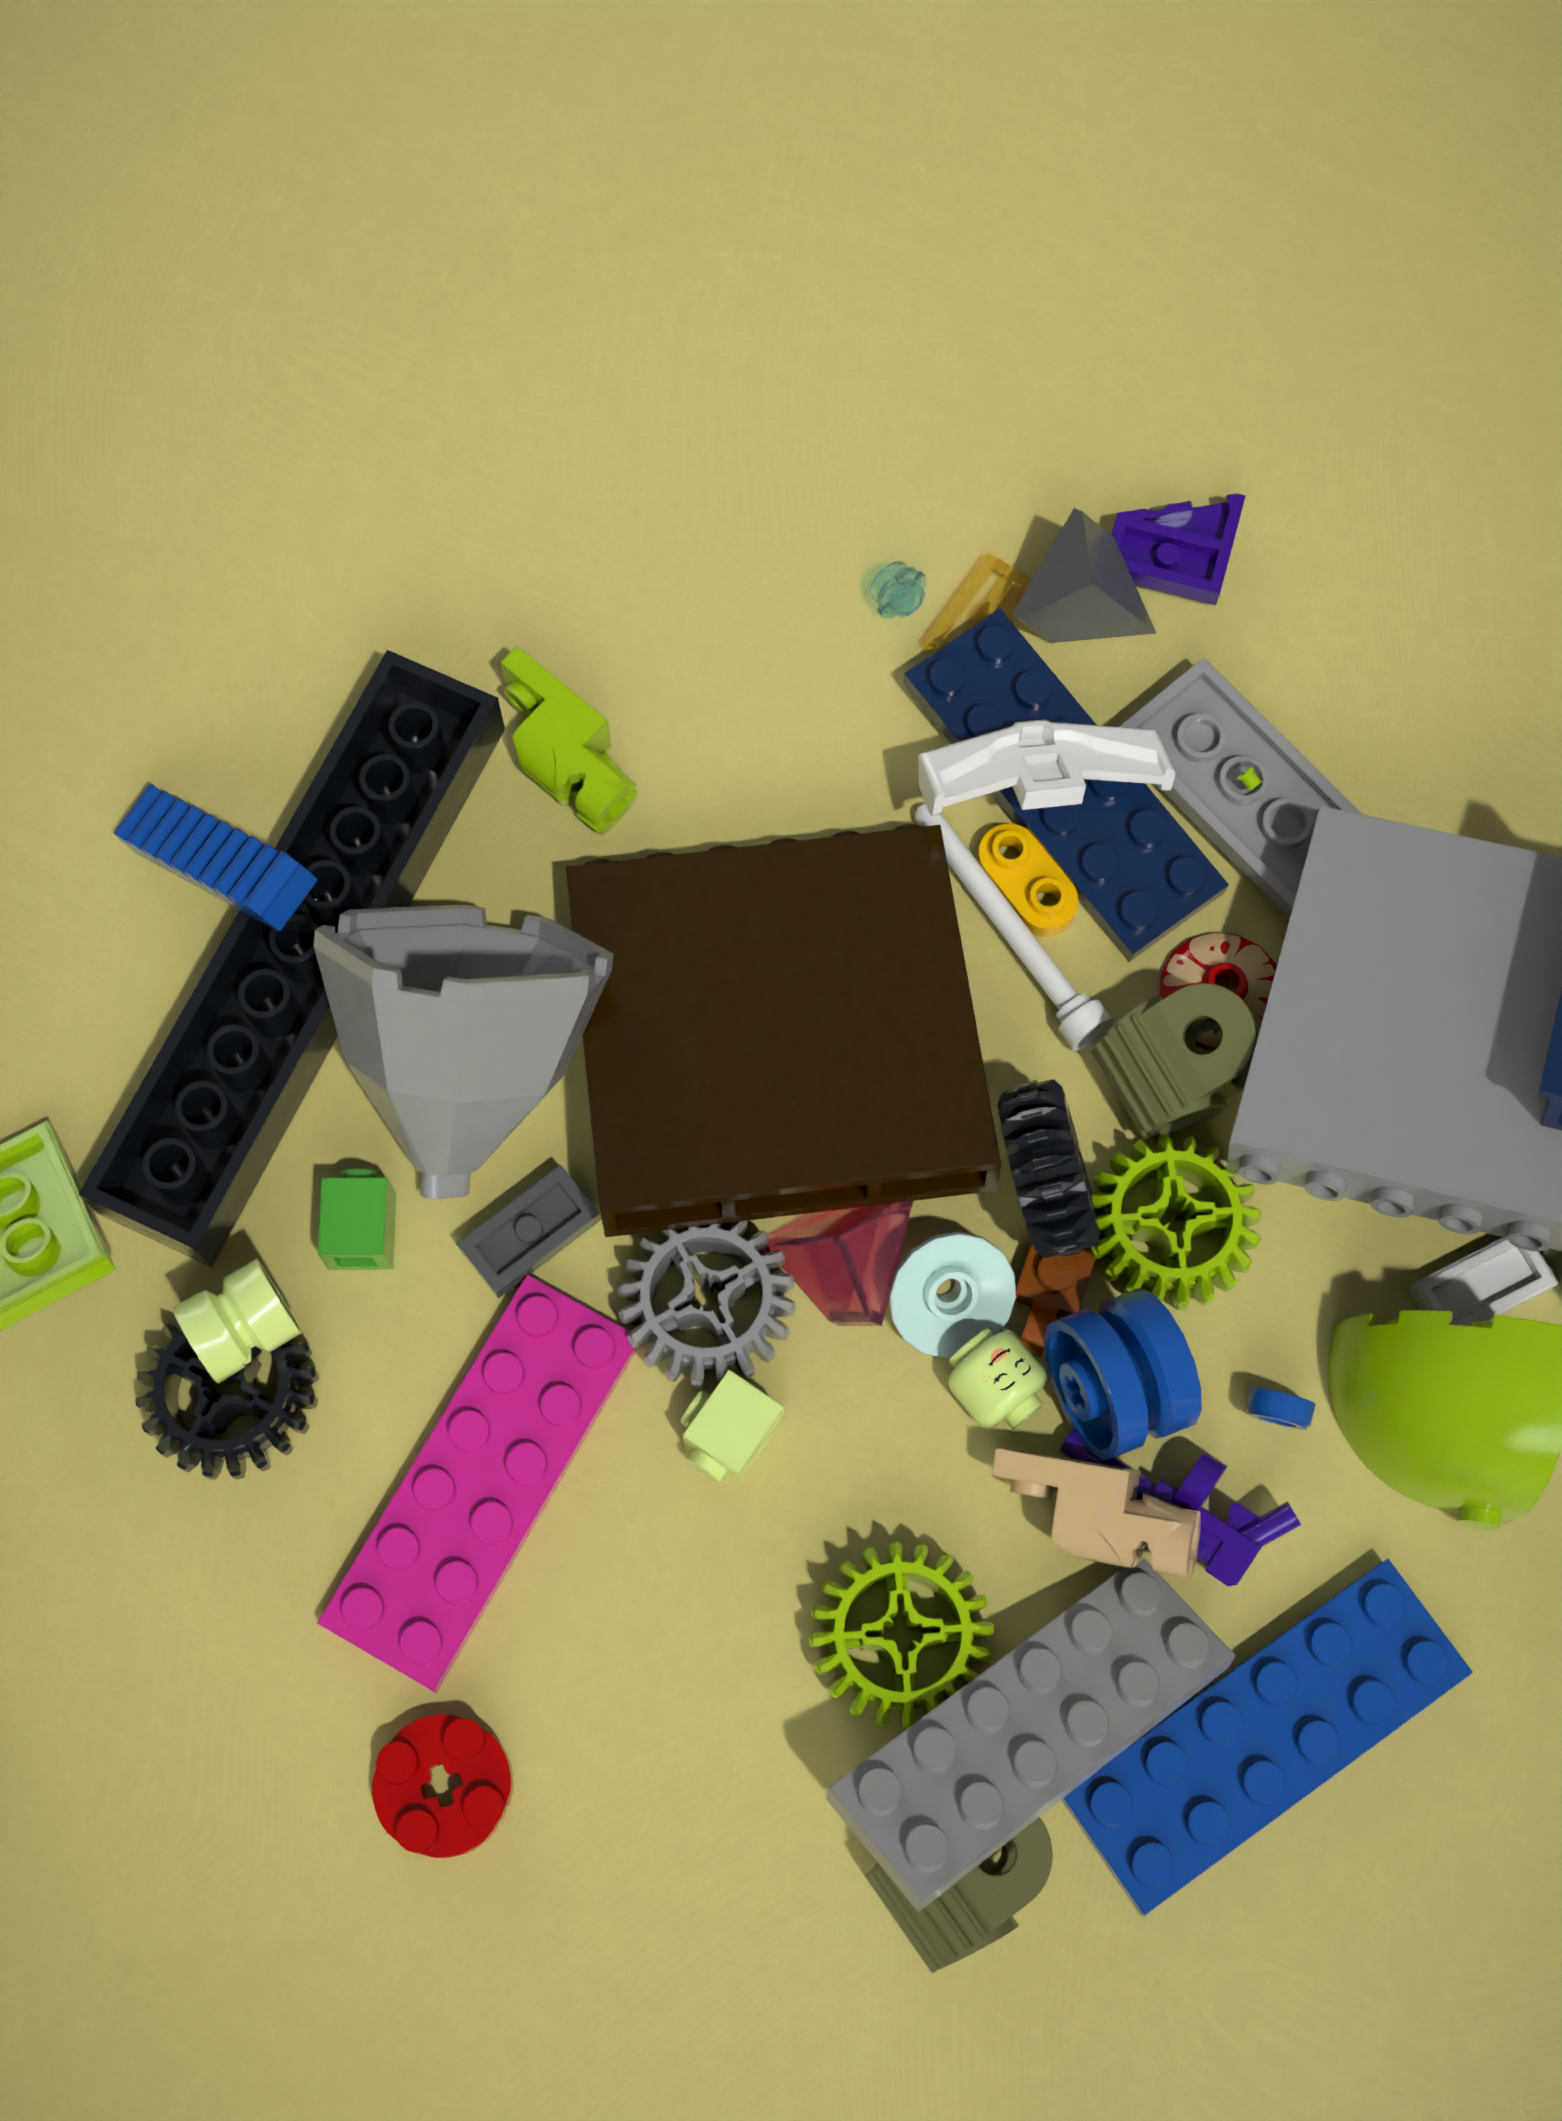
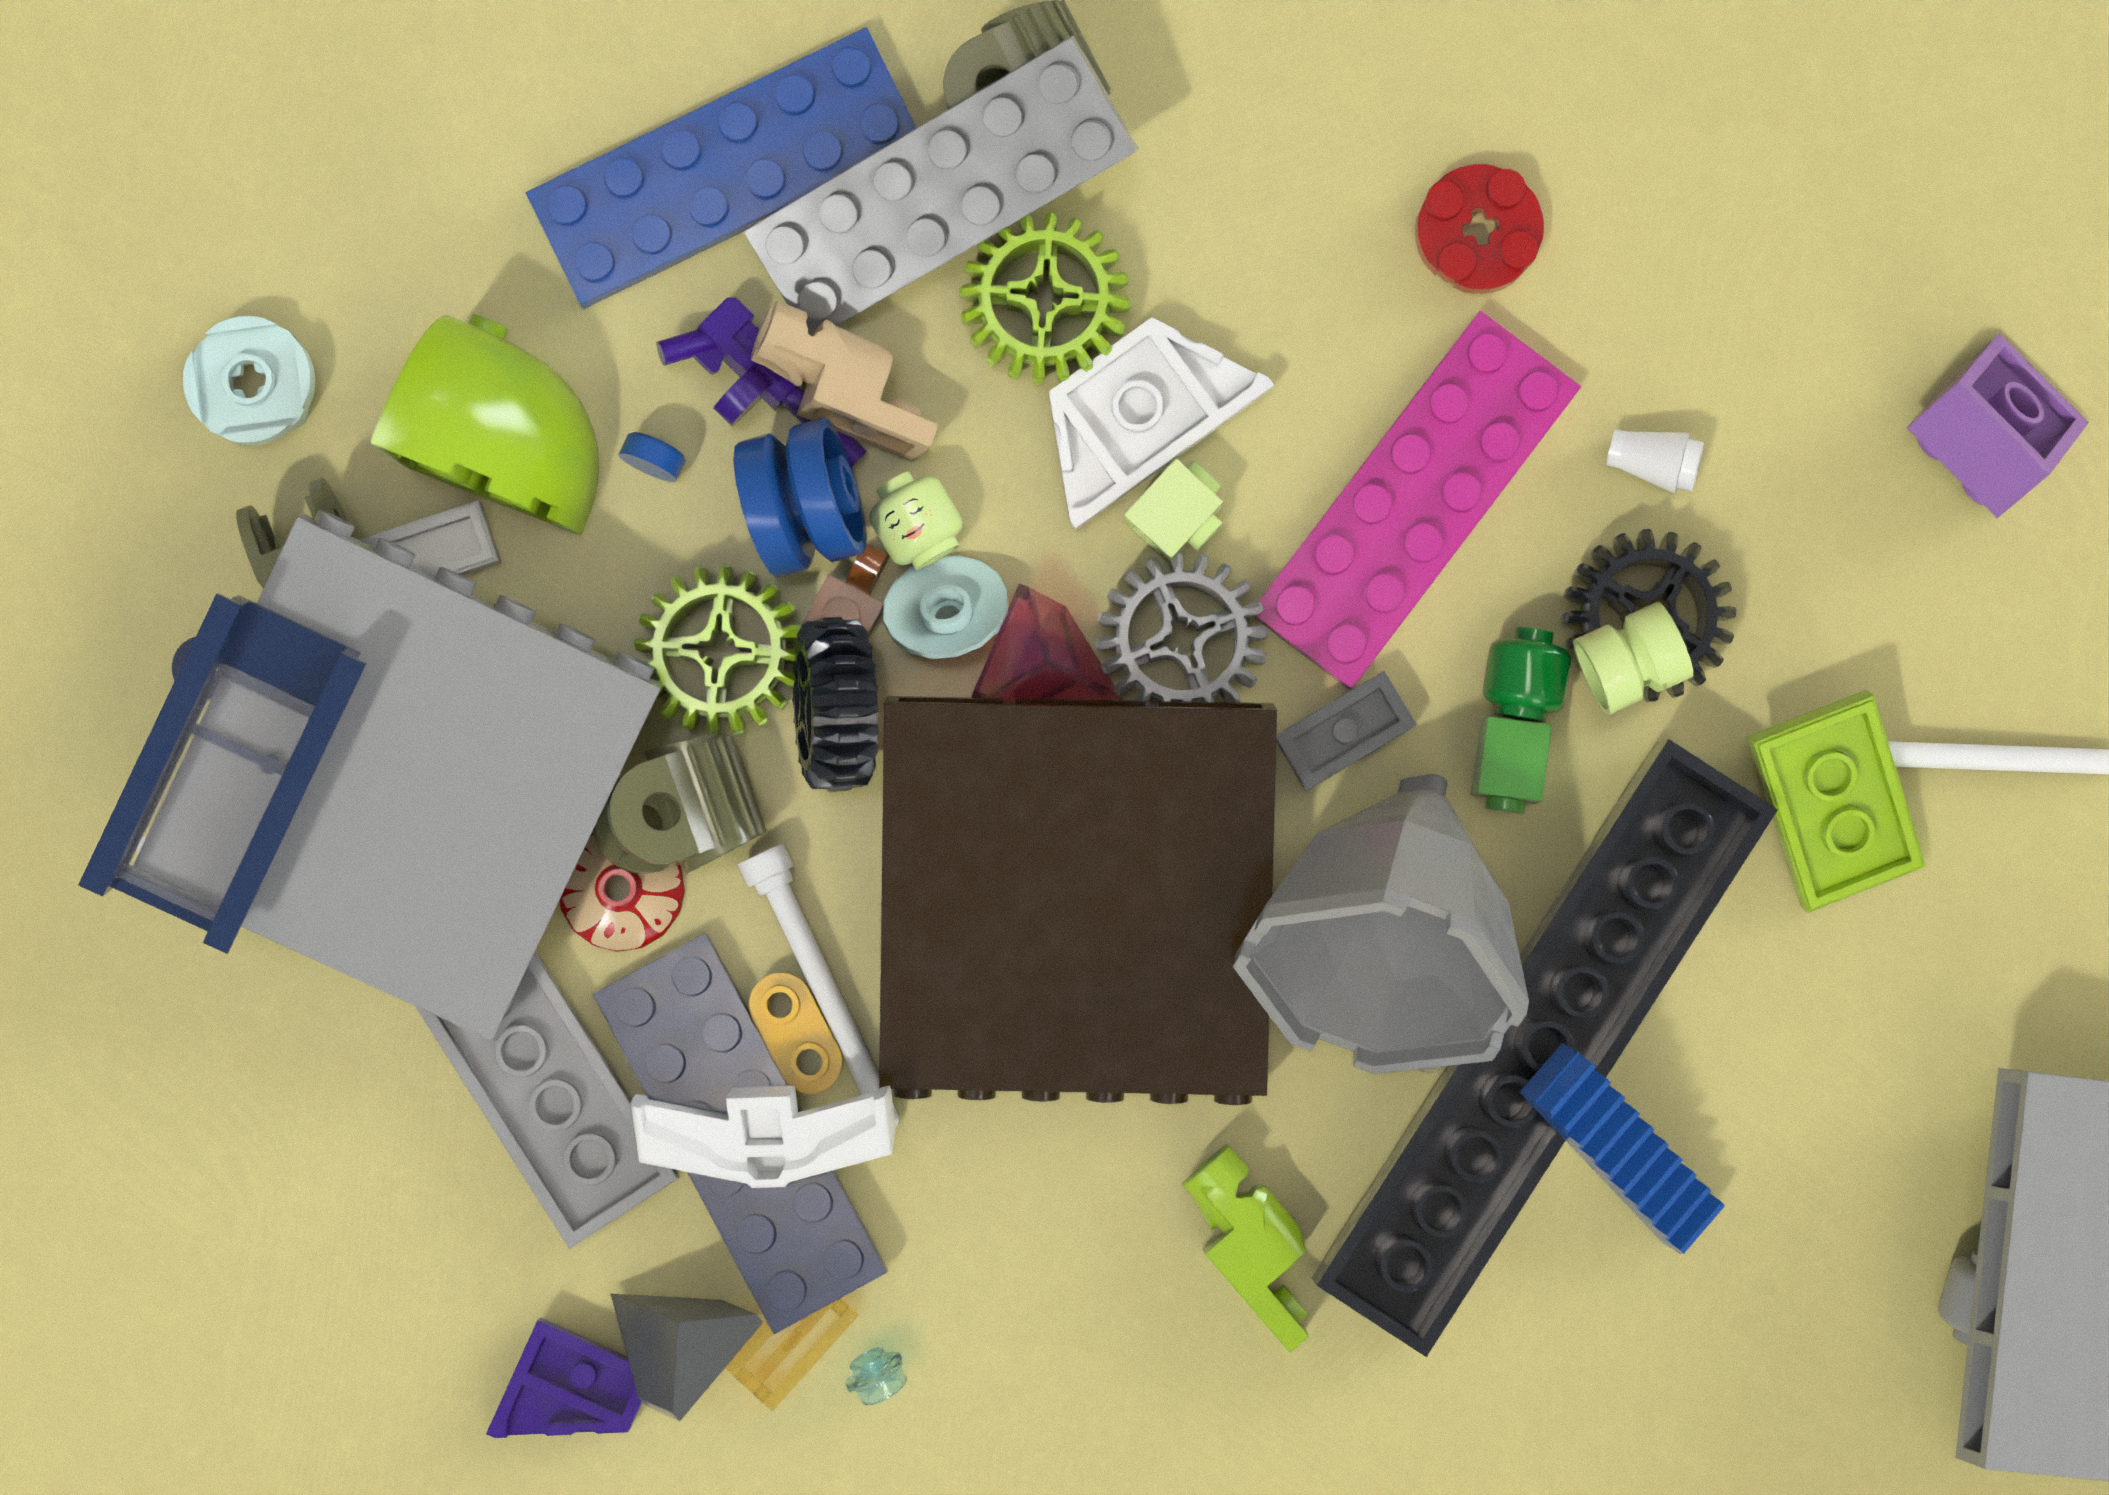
camera: 170 degrees left, 15 degrees up
(229, 1557) = (1657, 457): none -> white cone
(348, 1308) = (1527, 675): none -> green head
(779, 1528) = (1141, 412): none -> white wing
(1249, 778) = (551, 1100): lime piece -> none

